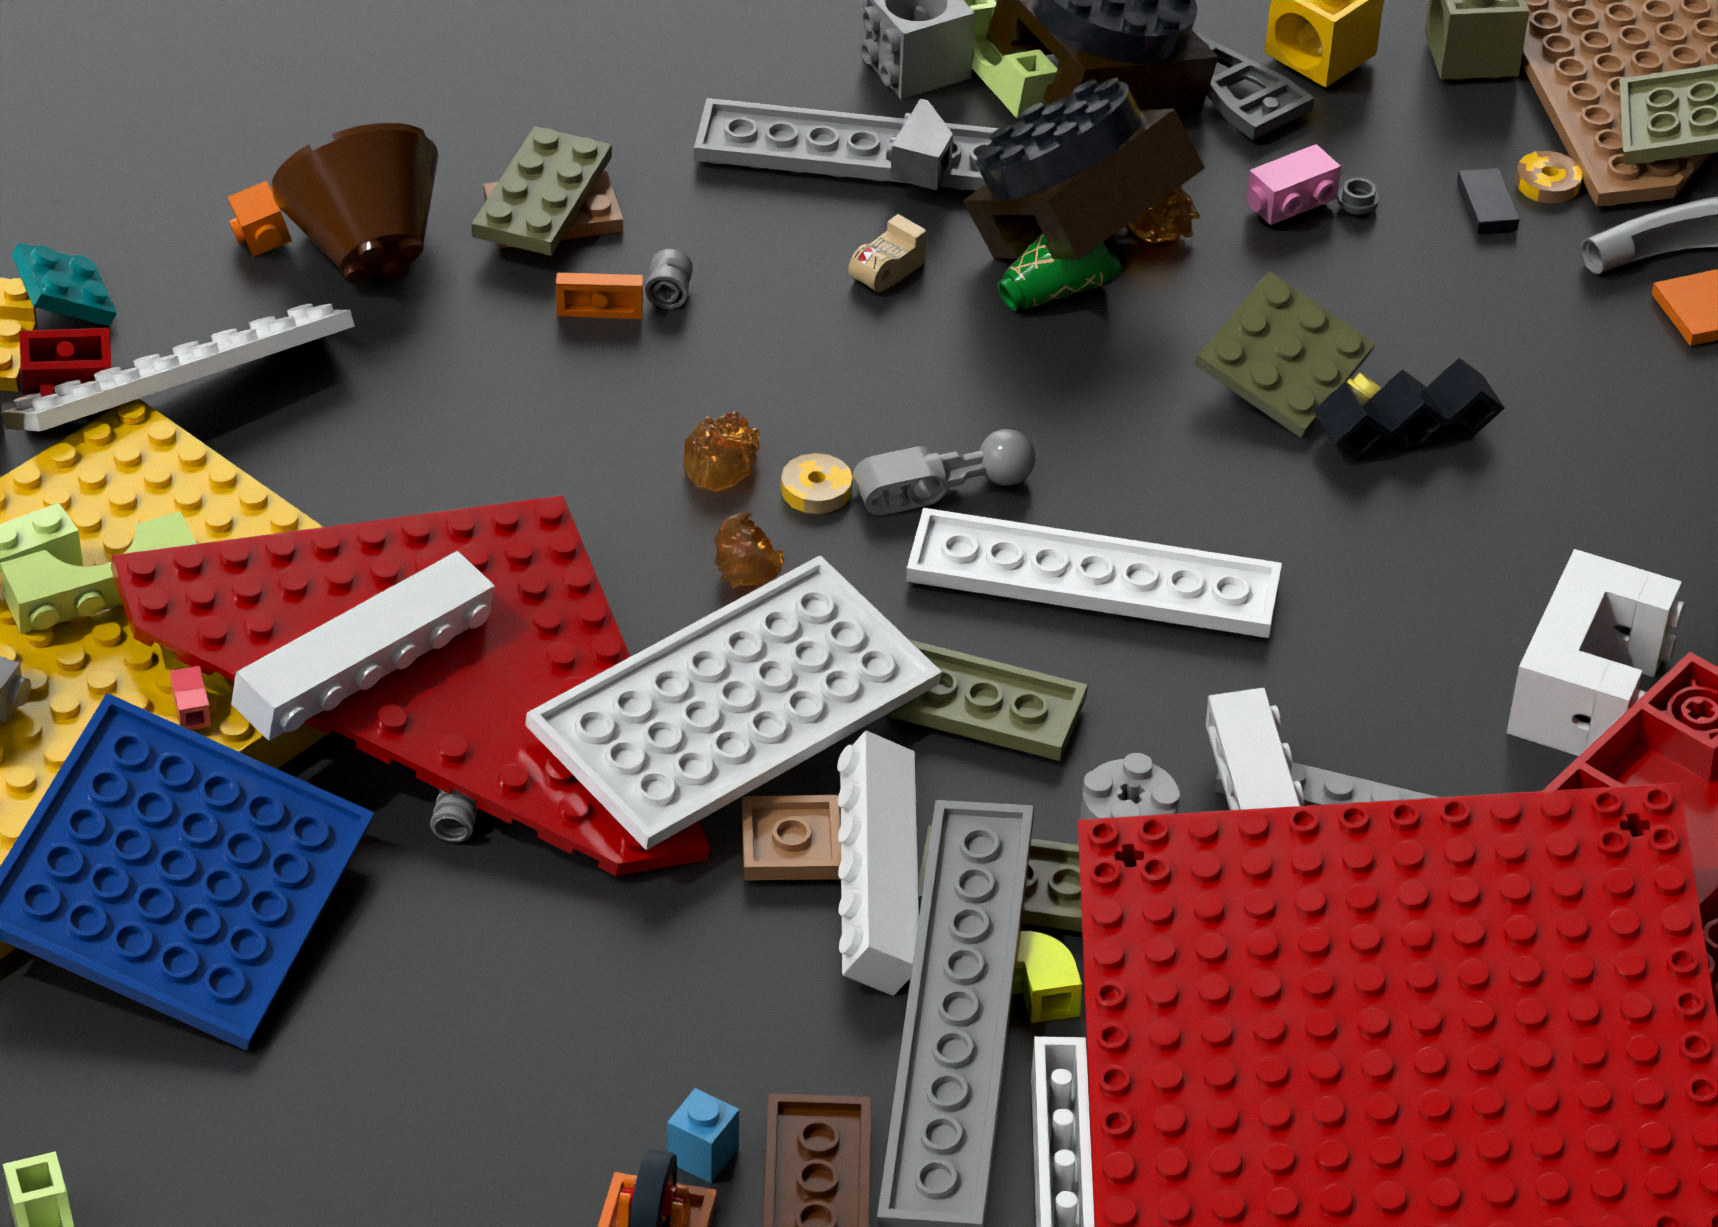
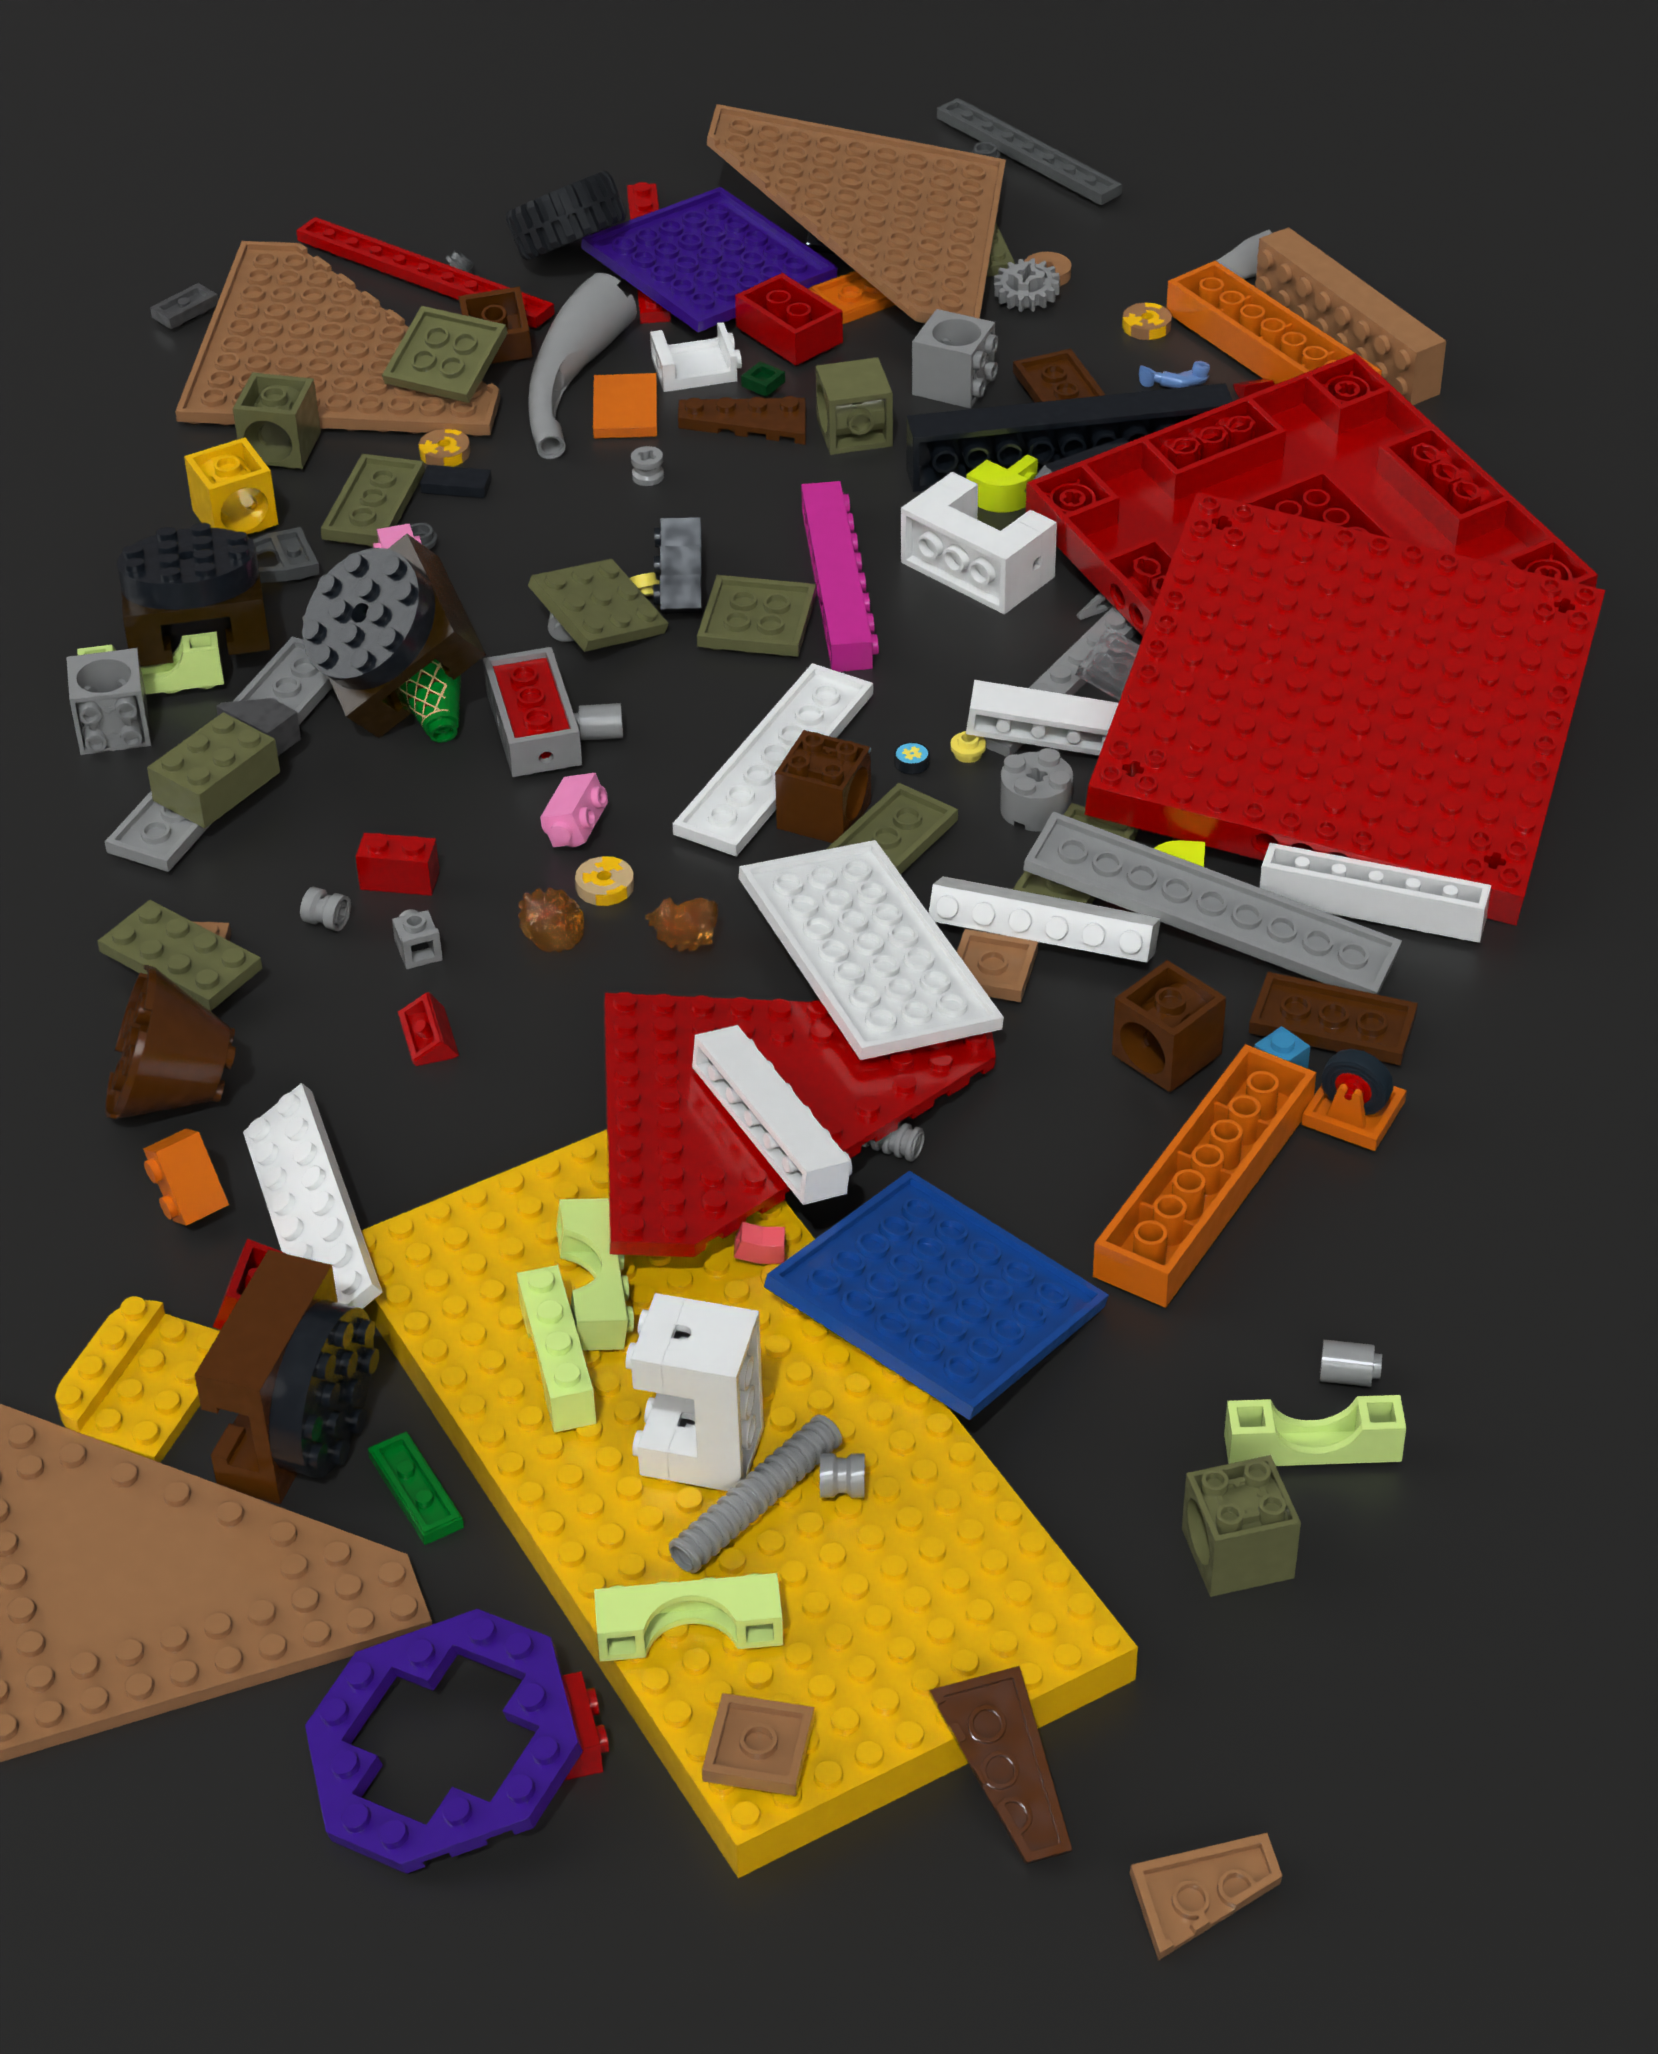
camera: 70 degrees left, 0 degrees up
(64, 283) = (135, 1279): teal plate -> none
(202, 272) = (184, 1177): none -> orange brick
(258, 219) = (111, 1140): orange brick -> none
(463, 1087) = (1203, 1176): none -> orange brick
(517, 408) = (427, 1031): none -> red slope
(599, 295) = (324, 952): orange plate -> none
(650, 358) = (413, 929): none -> light grey brick
(699, 999) = (1168, 1025): none -> reddish brown brick
(759, 311) = (397, 864): none -> red brick
(829, 130) = (213, 769): none -> olive brick
(890, 255) = (361, 782): tan leg -> none
(904, 421) = (574, 810): none -> bright pink brick
(921, 478) = (636, 771): light grey beam -> none
(1028, 607) = (822, 786): none -> reddish brown brick
(1063, 347) = (532, 711): none -> brick
(1085, 412) = (600, 721): none -> light grey brick
(1159, 696) = (911, 758): none -> tile
(1197, 743) = (968, 747): none -> light yellow plate
(1361, 501) = (757, 615): none -> olive plate
(1406, 142) = (372, 499): none -> olive plate
(1474, 551) = (838, 577): none -> dark pink brick
(1606, 344) = (647, 466): none -> light grey wheel

